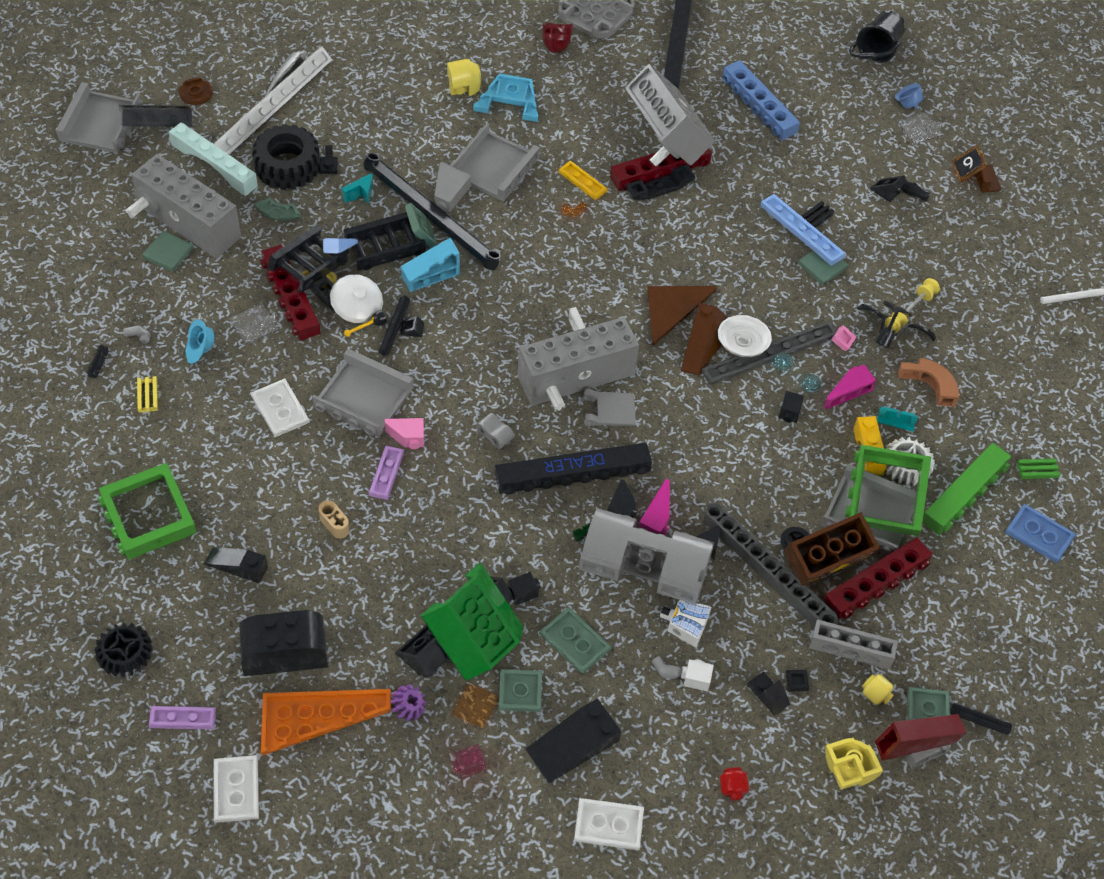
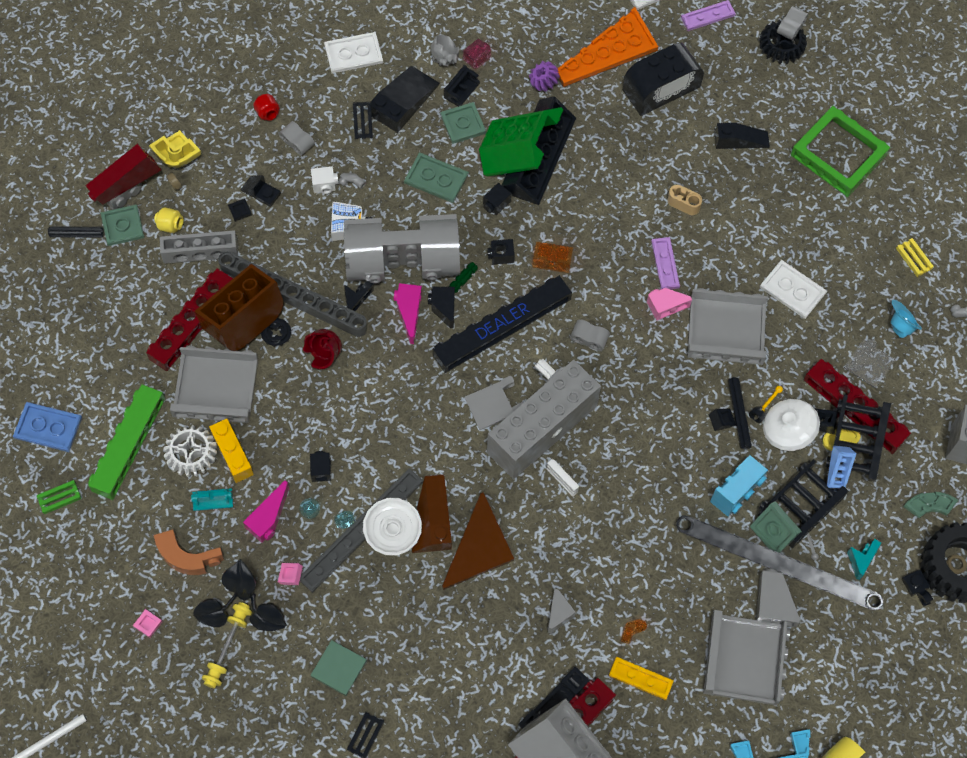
camera: 160 degrees right, 10 degrees up
(105, 648) = (792, 23): none -> light grey axle
(475, 705) = (493, 101): clear orange piece -> none
(495, 509) = (552, 257): none -> clear orange brick
(505, 730) = (461, 86): none -> black hinge
(505, 775) = (444, 50): none -> light grey hair
(542, 527) = (501, 245): none -> black brick
(628, 235) = (560, 612): none -> light grey slope
(633, 718) = (364, 135): none -> black tile
(711, 735) = (296, 138): none -> light grey axle
(753, 501) = (324, 353): none -> dark red helmet
(803, 230) = (374, 699): light blue plate -> none
(862, 732) = (173, 181): none -> dark tan tile
(894, 458) = (201, 368): bright green piece -> none
(976, 346) = (147, 623): none -> bright pink tile

